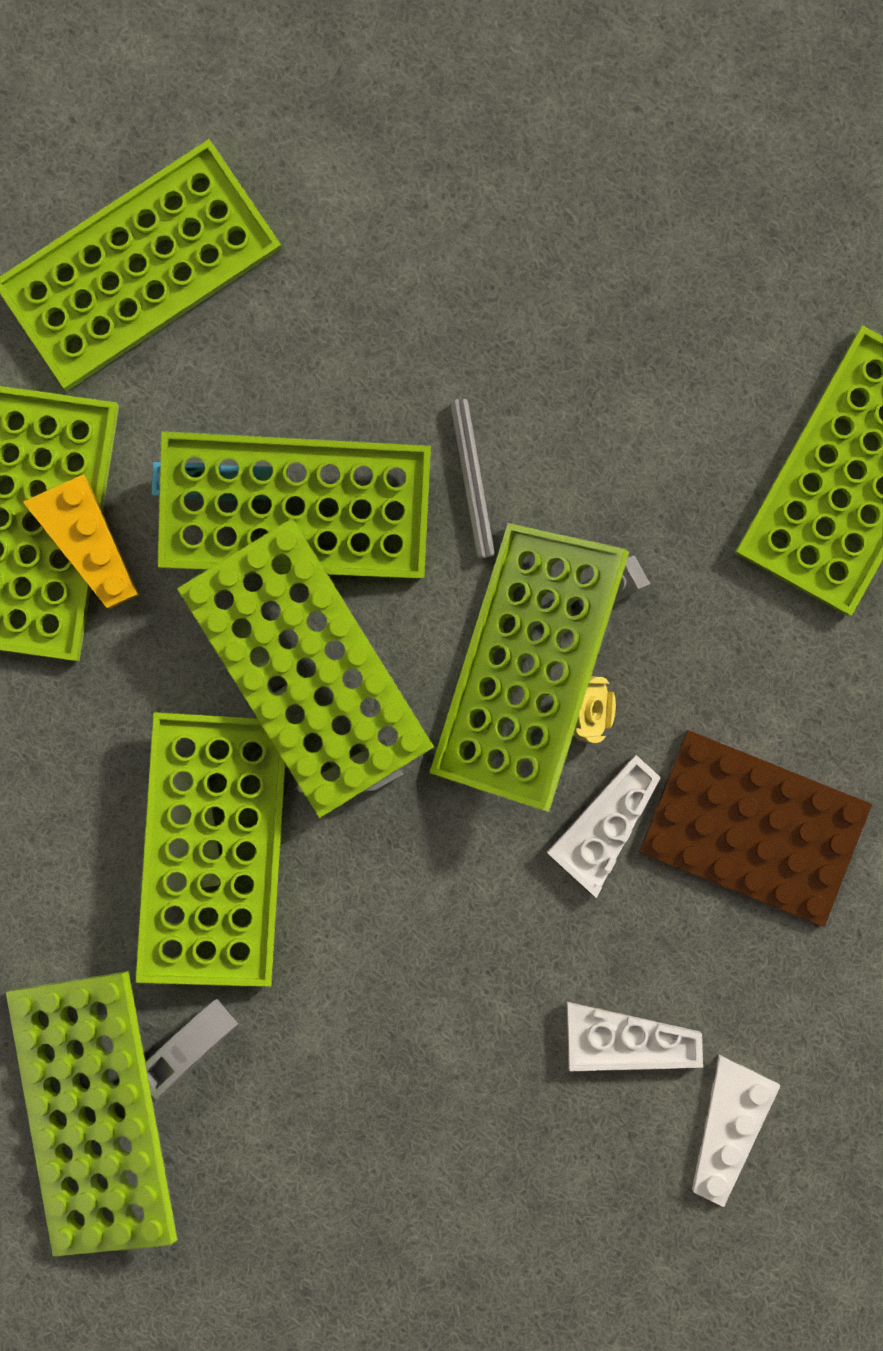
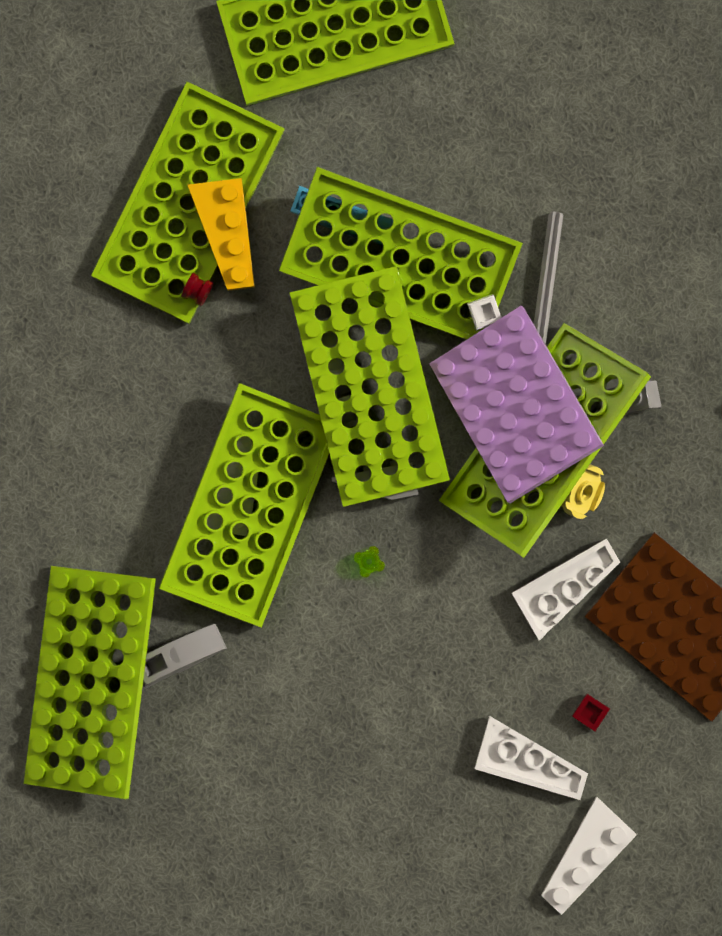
camera: 20 degrees right, 0 degrees up
(71, 619) = (197, 289): none -> dark red wheel
(381, 868) = (376, 565): none -> clear neon green plate
(412, 539) = (484, 311): none -> white tile
(483, 635) = (516, 404): none -> lavender plate
(682, 961) = (590, 712): none -> dark red plate

